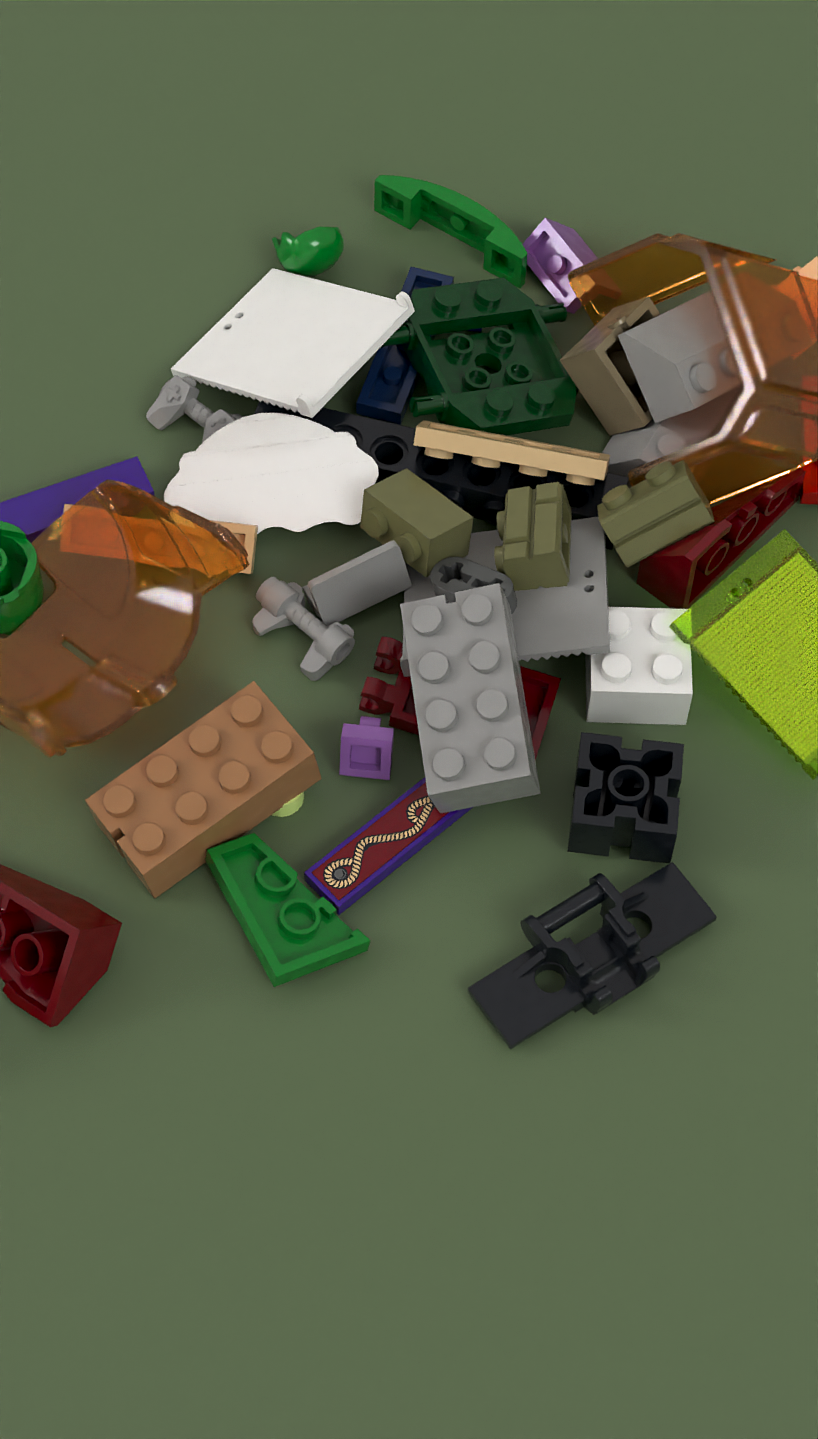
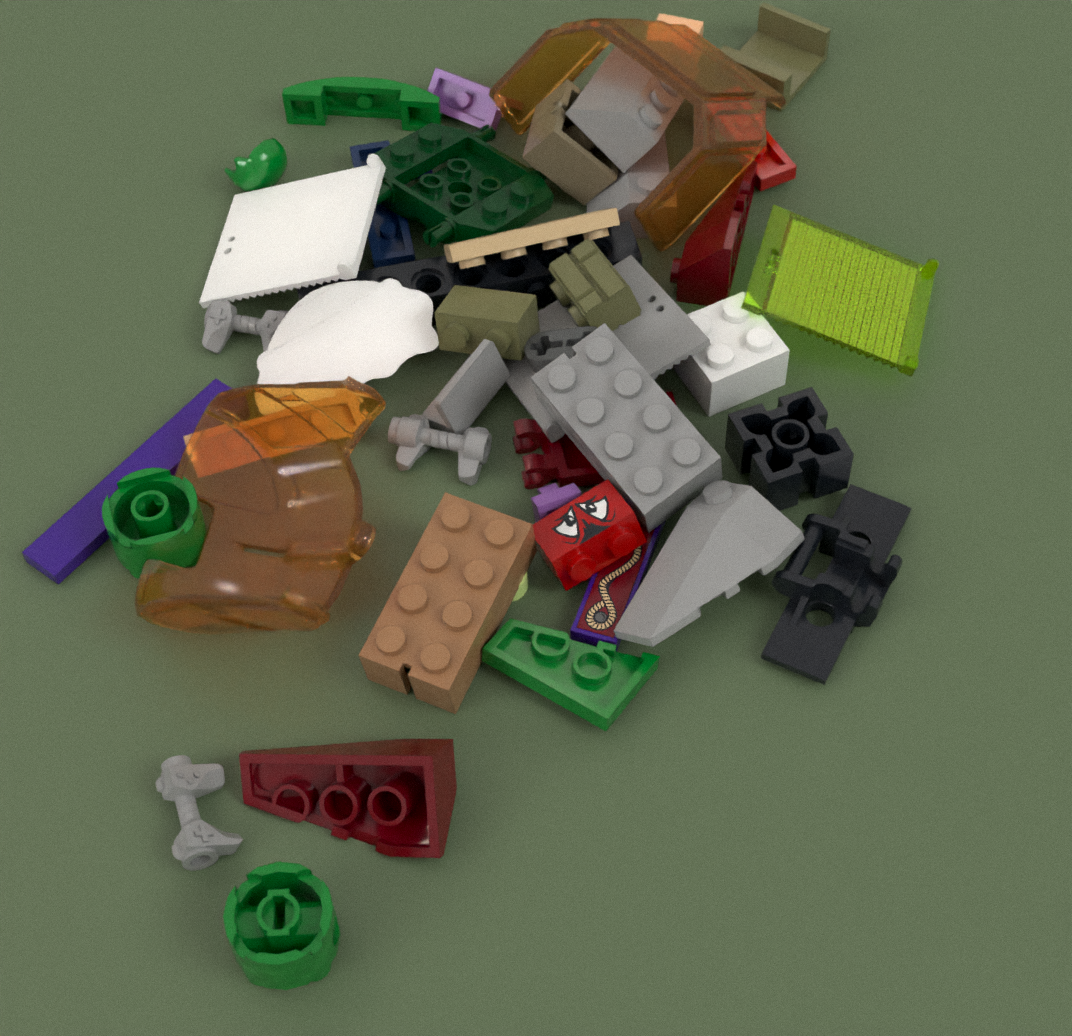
camera: 25 degrees left, 5 degrees down
(372, 787) = (587, 534): none -> red brick
(483, 860) = (711, 549): none -> light grey wedge
(654, 512) = (674, 230): olive brick -> none

